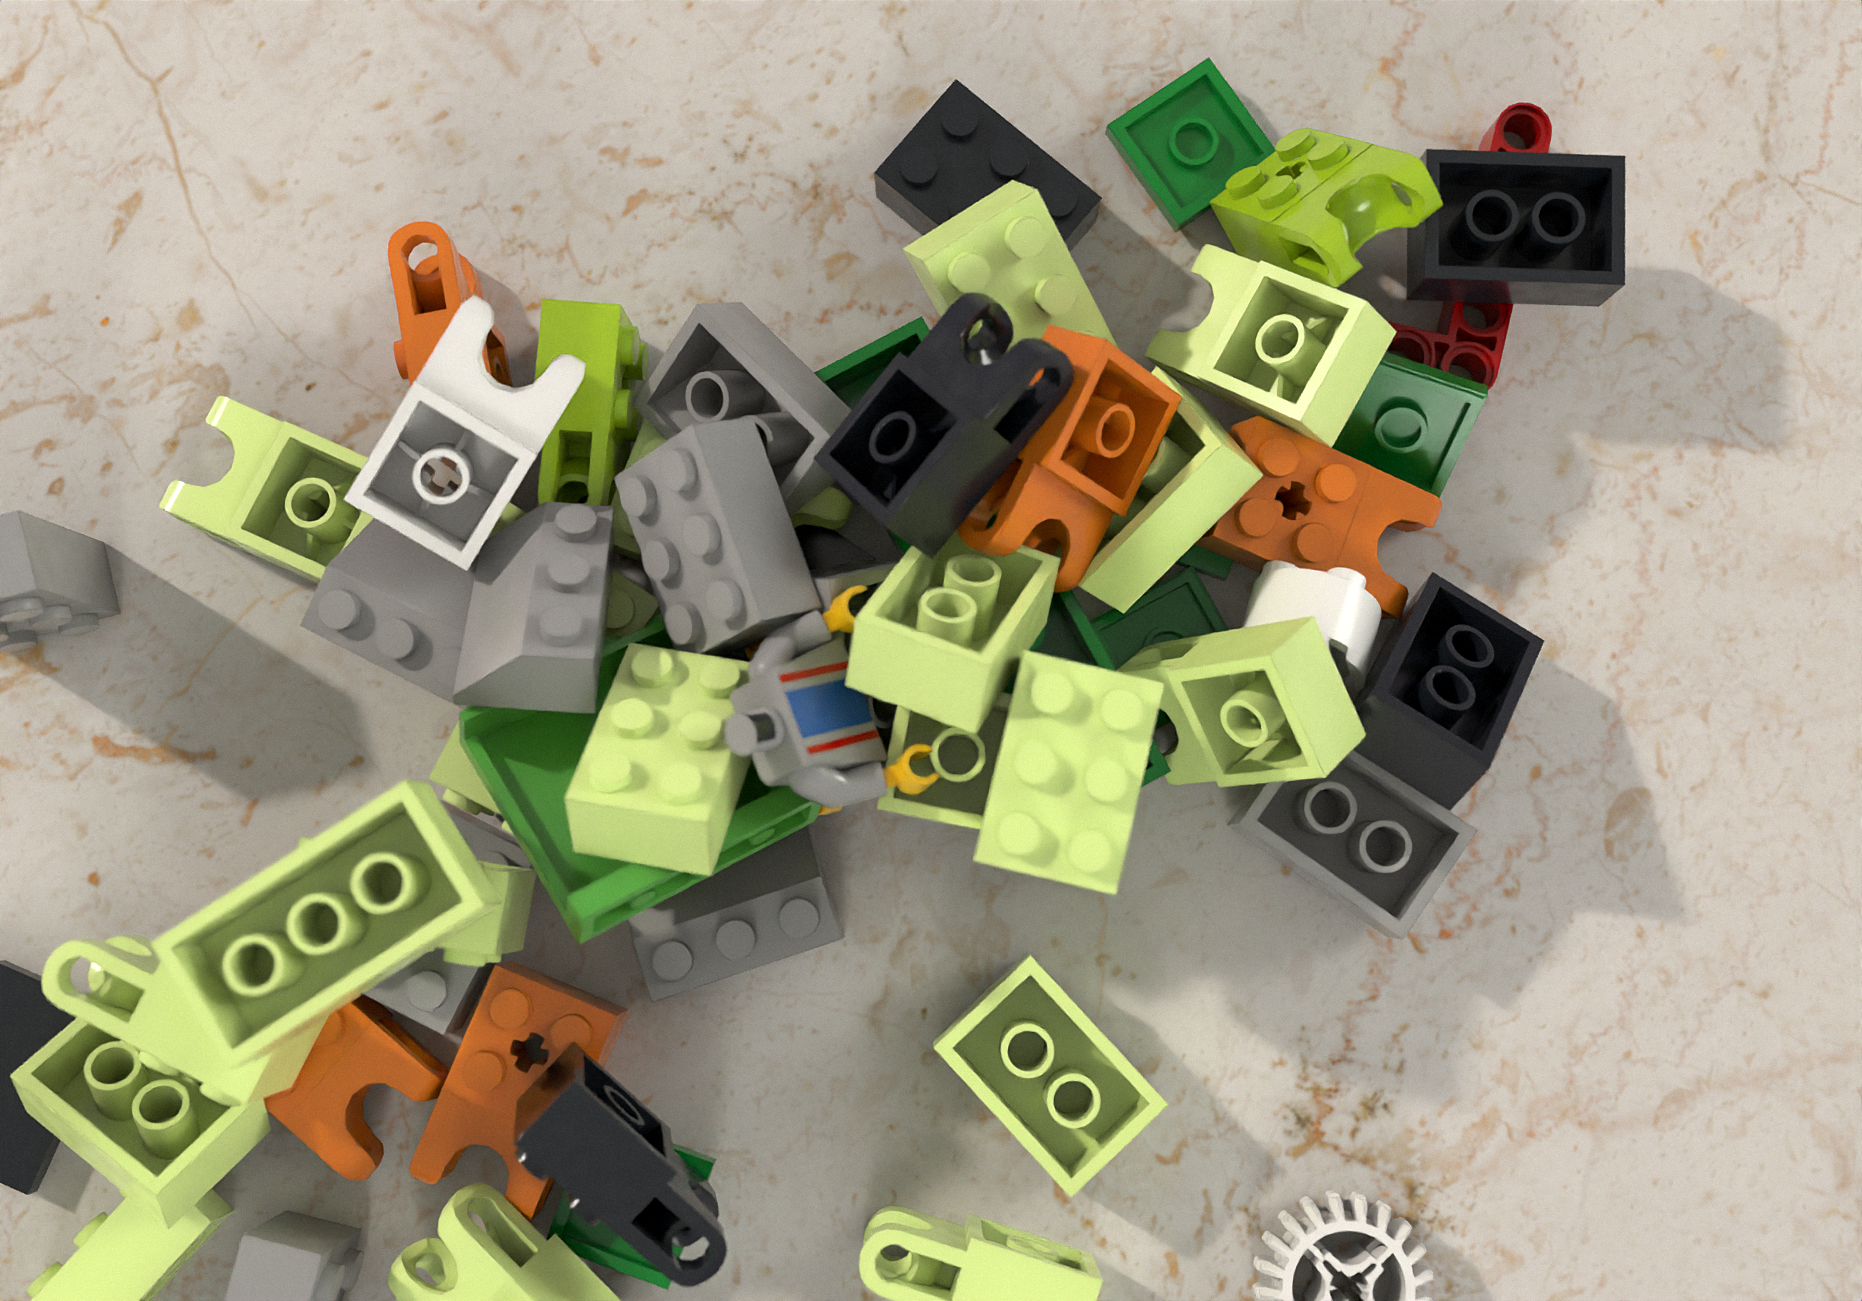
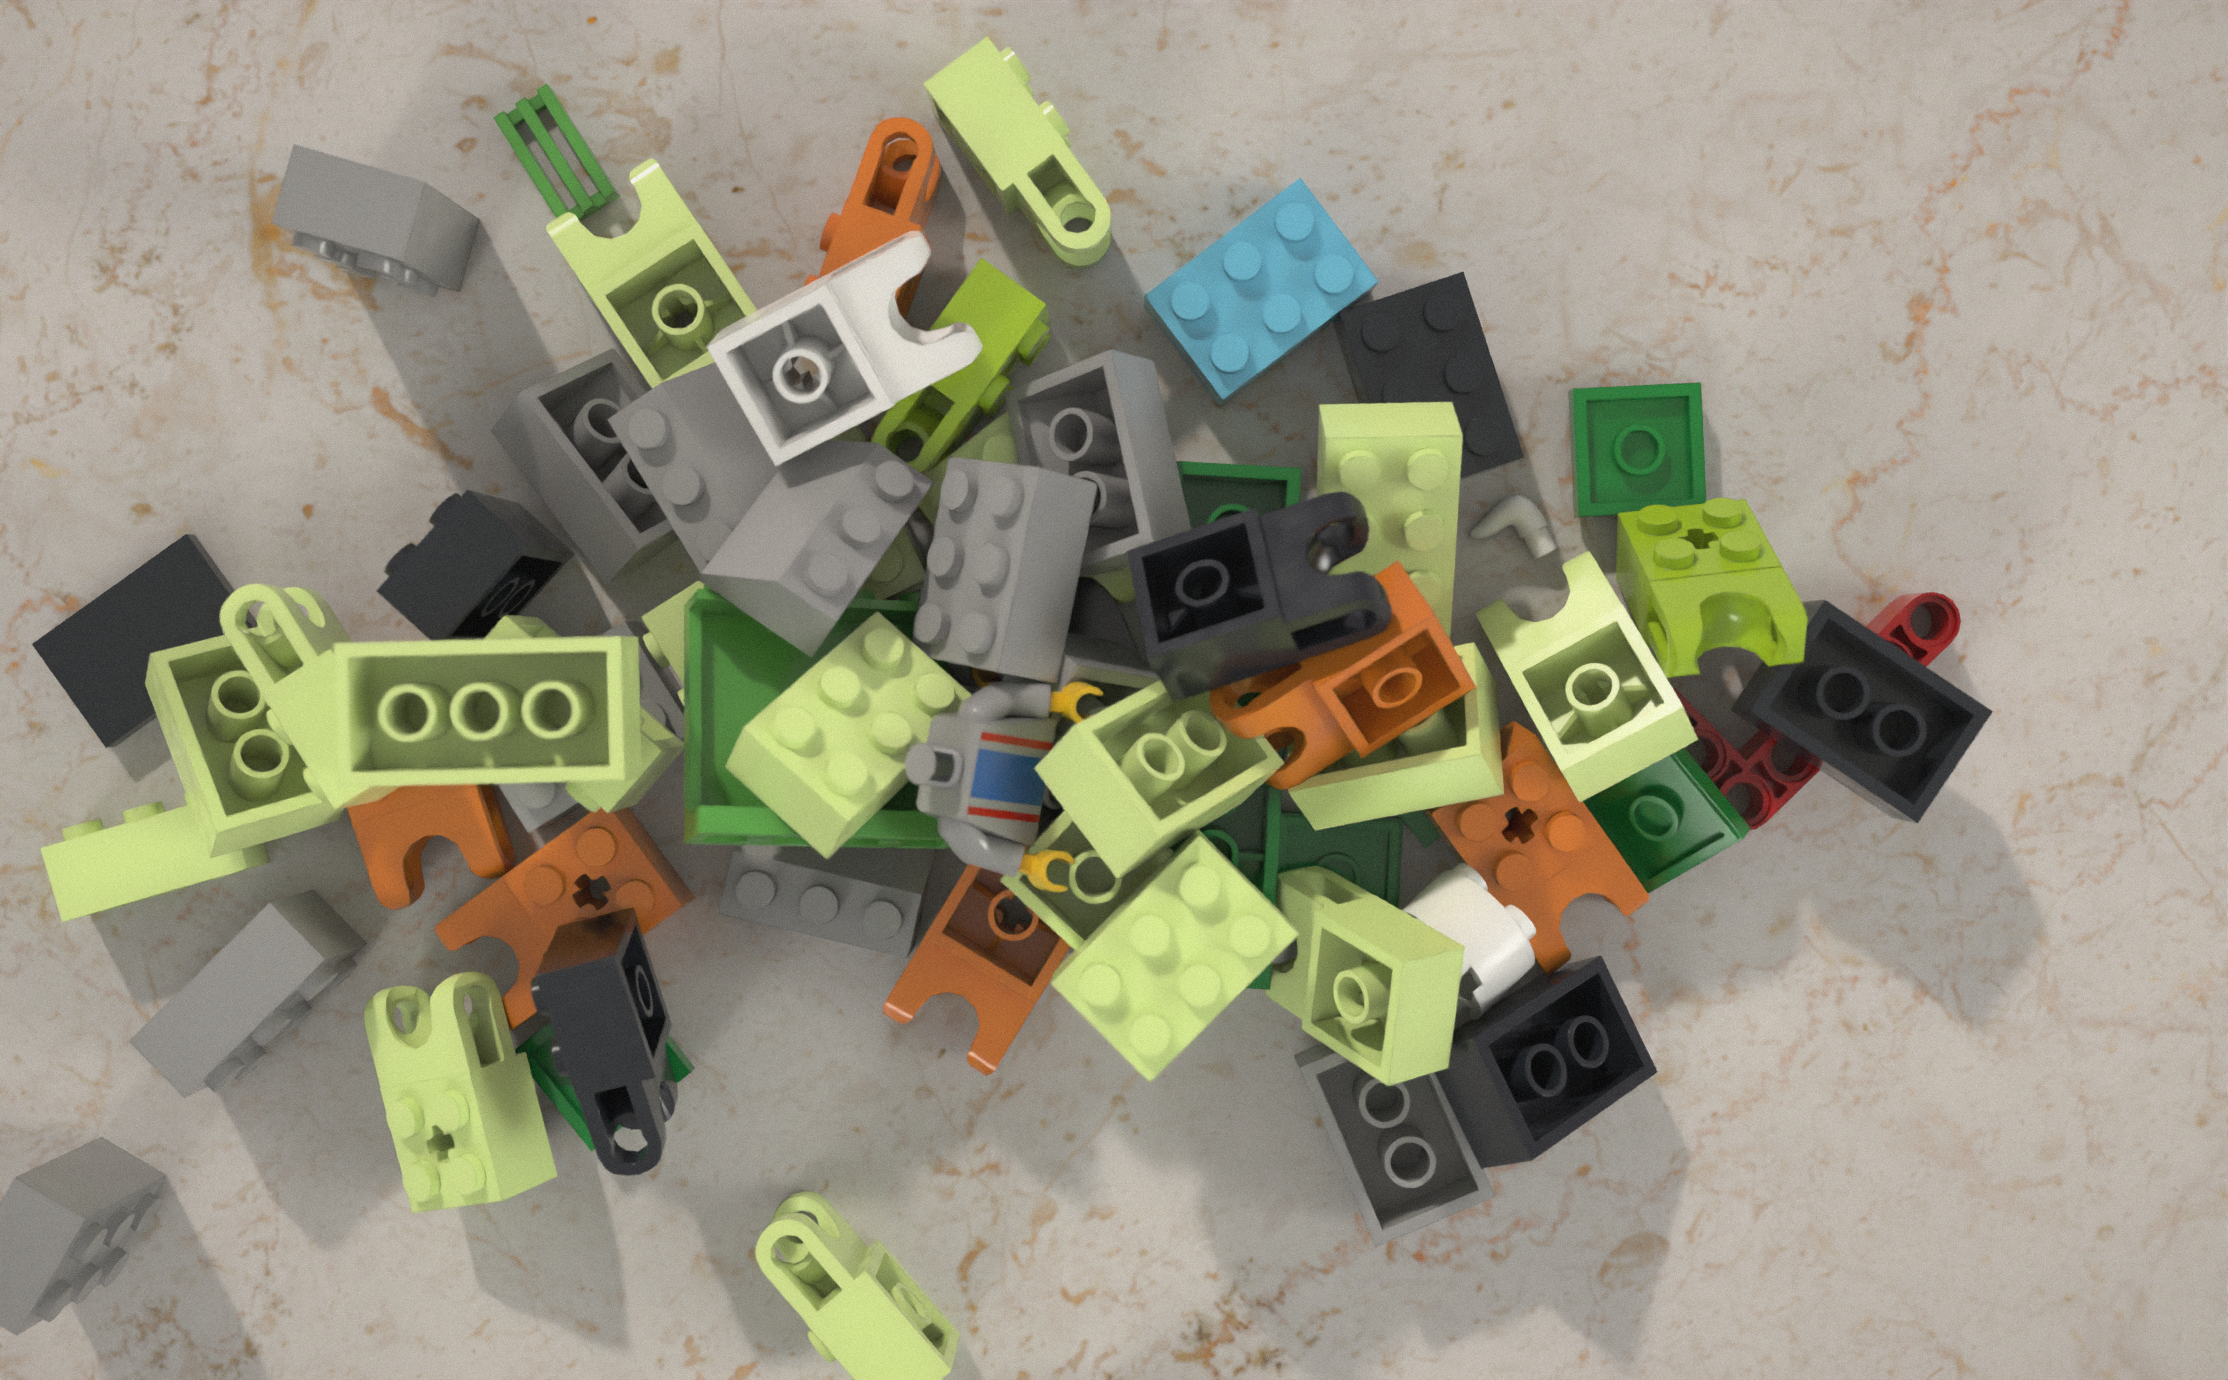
camera: 30 degrees right, 5 degrees up
(94, 426) = (528, 112): none -> bright green tile
(250, 818) = (472, 567): none -> black brick
(313, 689) = (580, 467): none -> light grey slope
(527, 203) = (1021, 150): none -> yellowish green brick
(798, 203) = (1259, 292): none -> medium azure brick
(908, 902) = (984, 960): none -> orange brick
(1049, 1074) = (1013, 1171): yellowish green brick -> none
(1135, 256) = (1526, 519): none -> white animal

